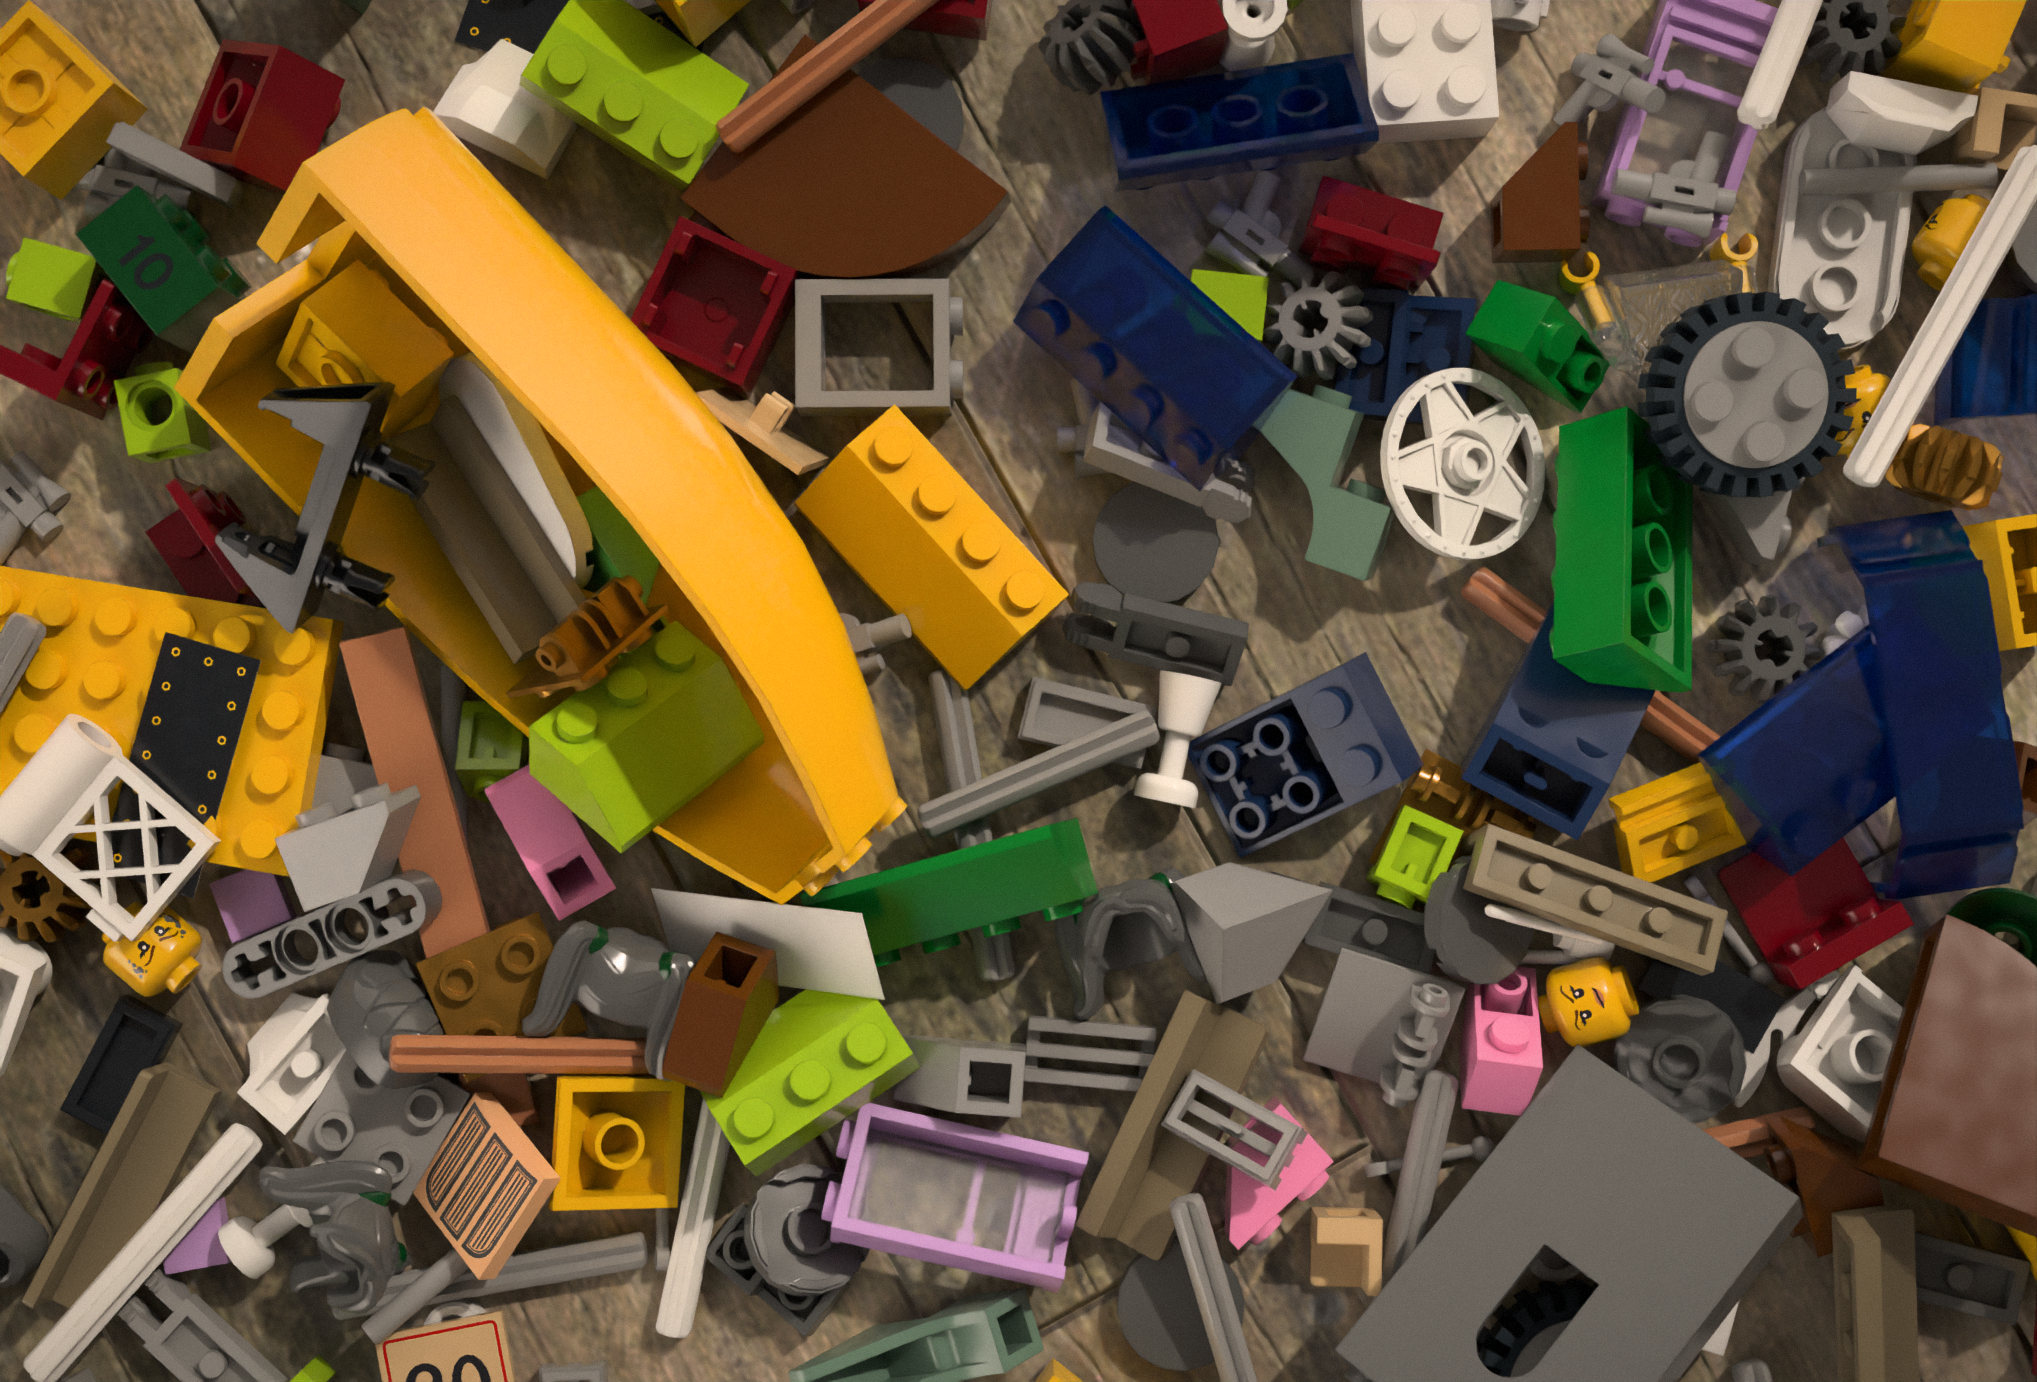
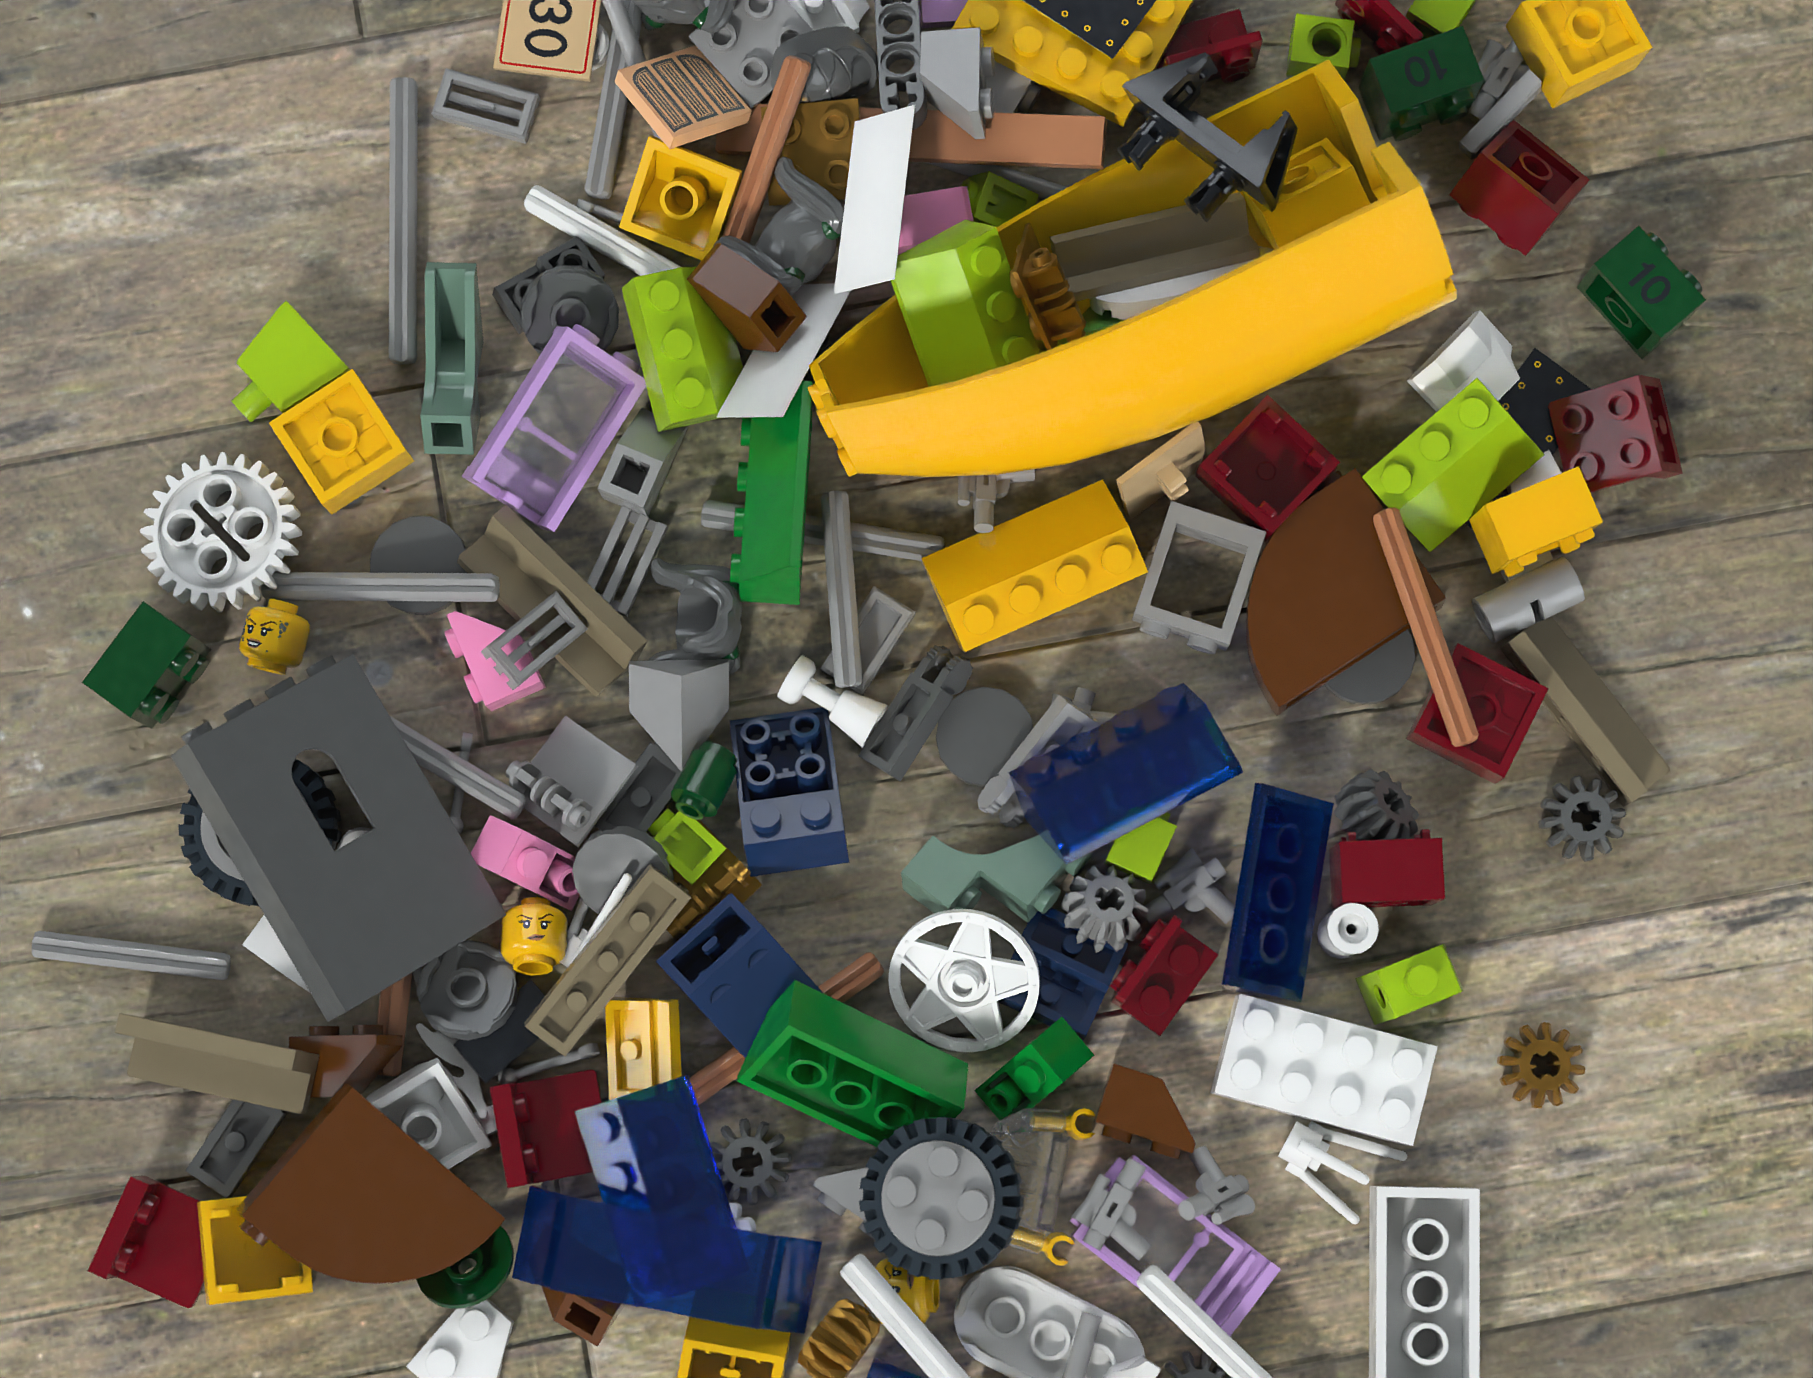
camera: 110 degrees right, 5 degrees down
(542, 894) = (874, 200): none -> white sticker
(1334, 858) = (704, 781): none -> dark green brick
(1346, 1248) = (419, 698): tan panel -> none

